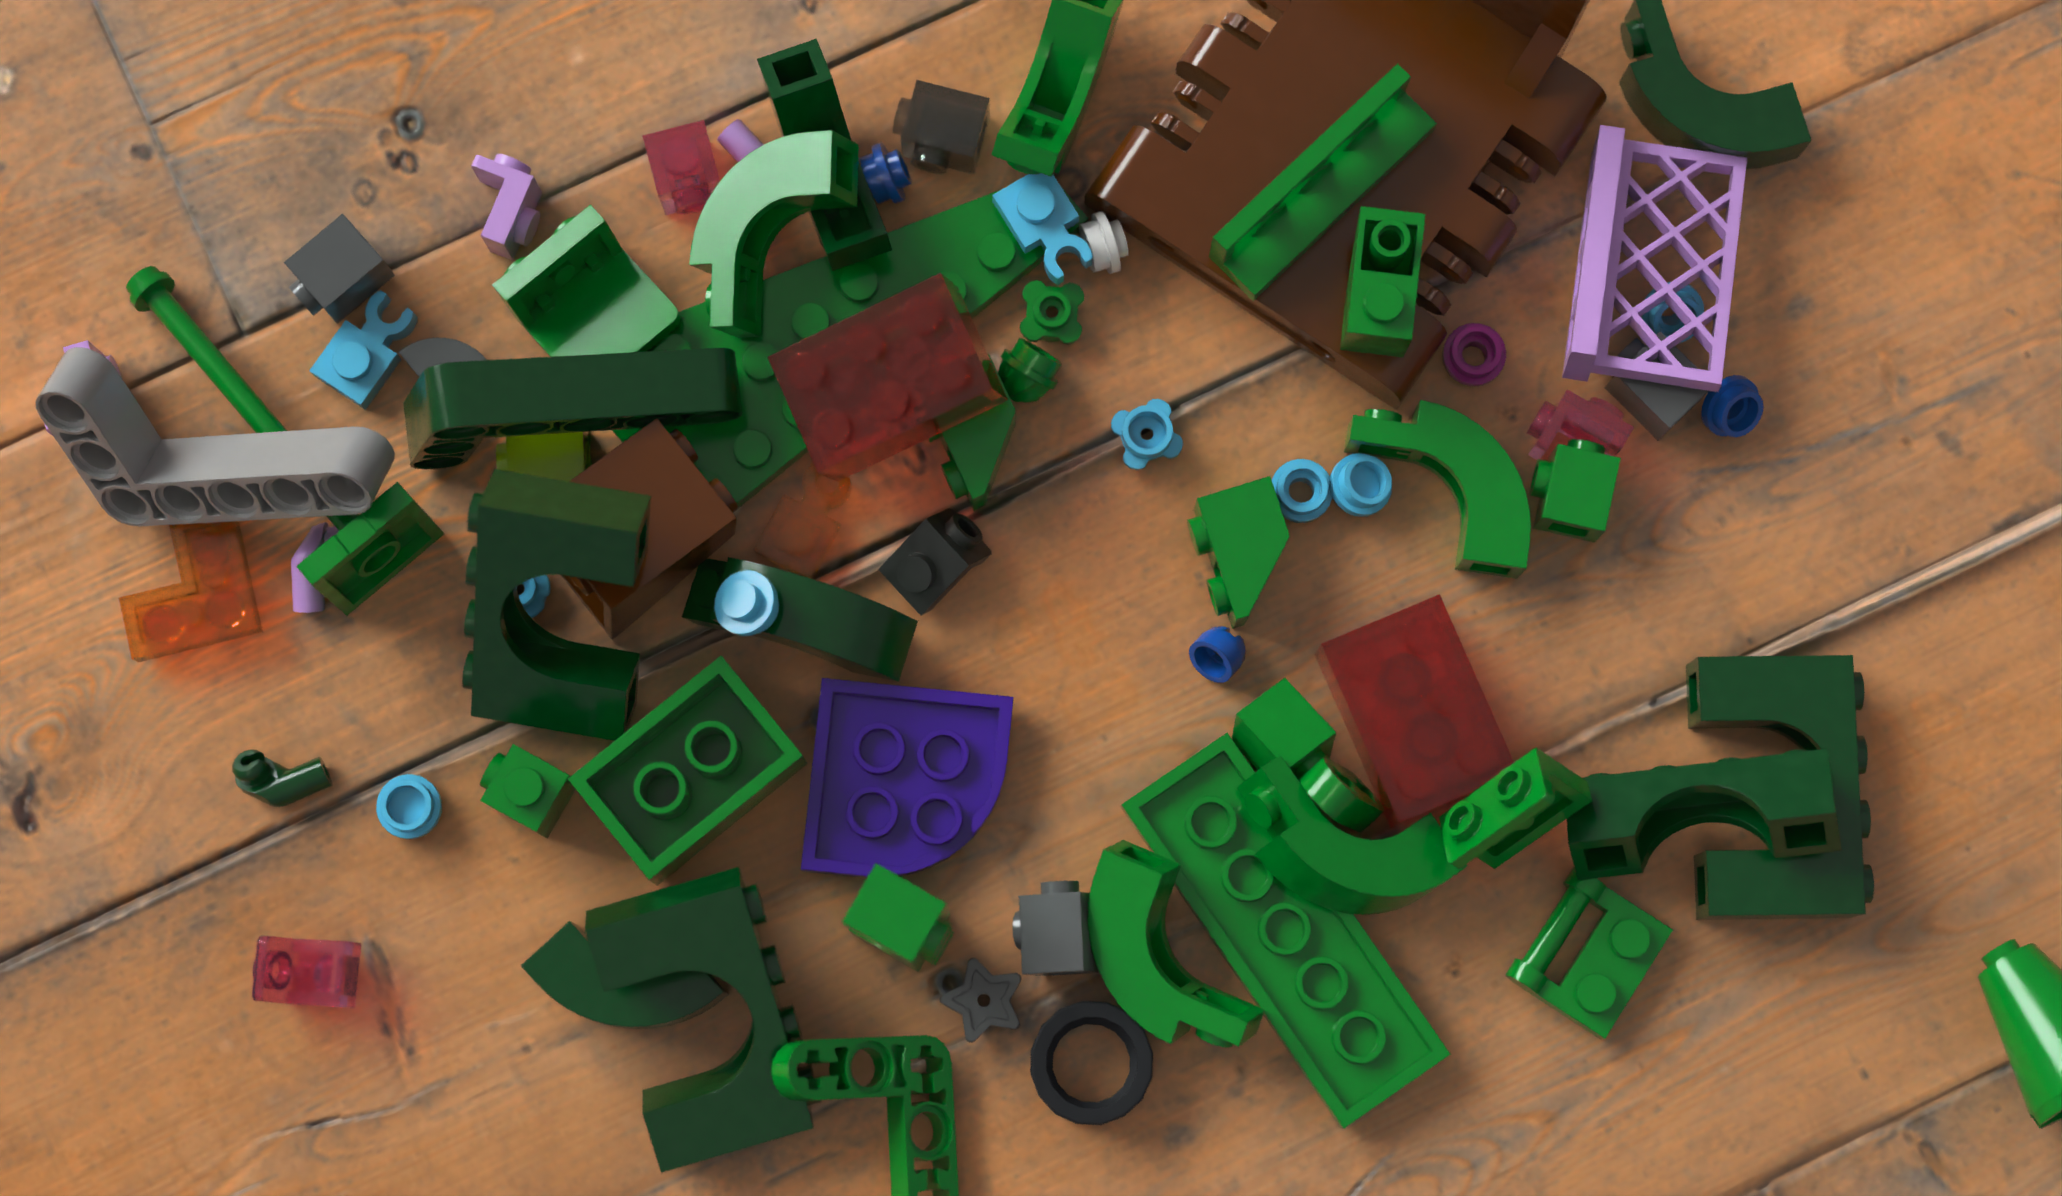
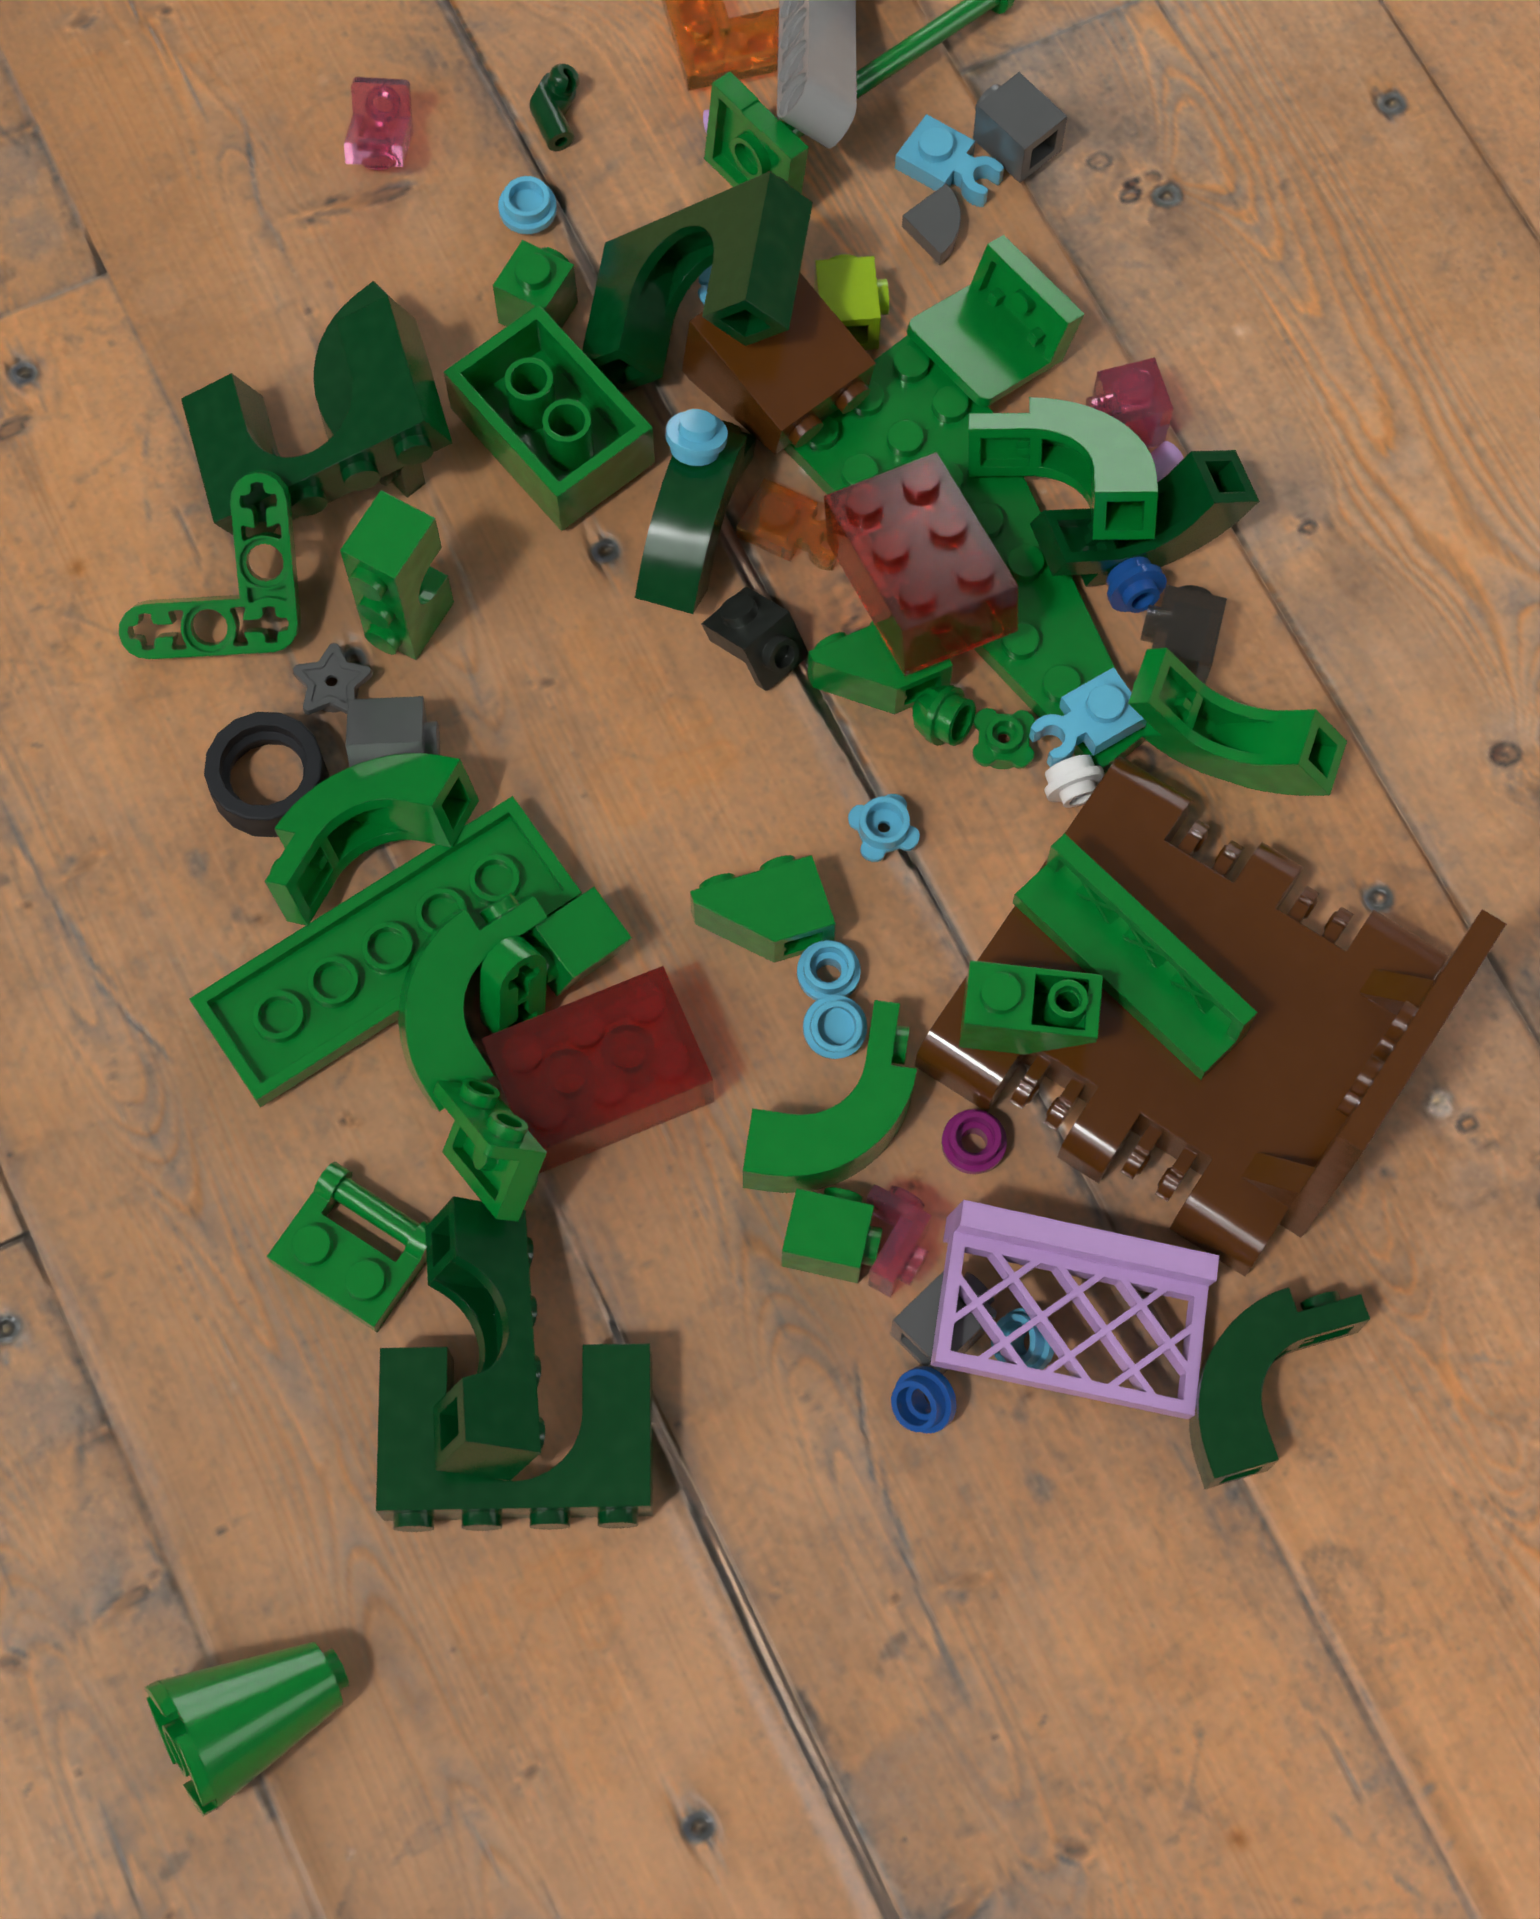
camera: 90 degrees right, 10 degrees down
(474, 400) = (884, 220): dark green beam -> none
(513, 214) = (1086, 268): lavender bracket -> none
(901, 775) = (546, 607): dark purple plate -> none
(1211, 665) = (664, 892): blue hinge -> none

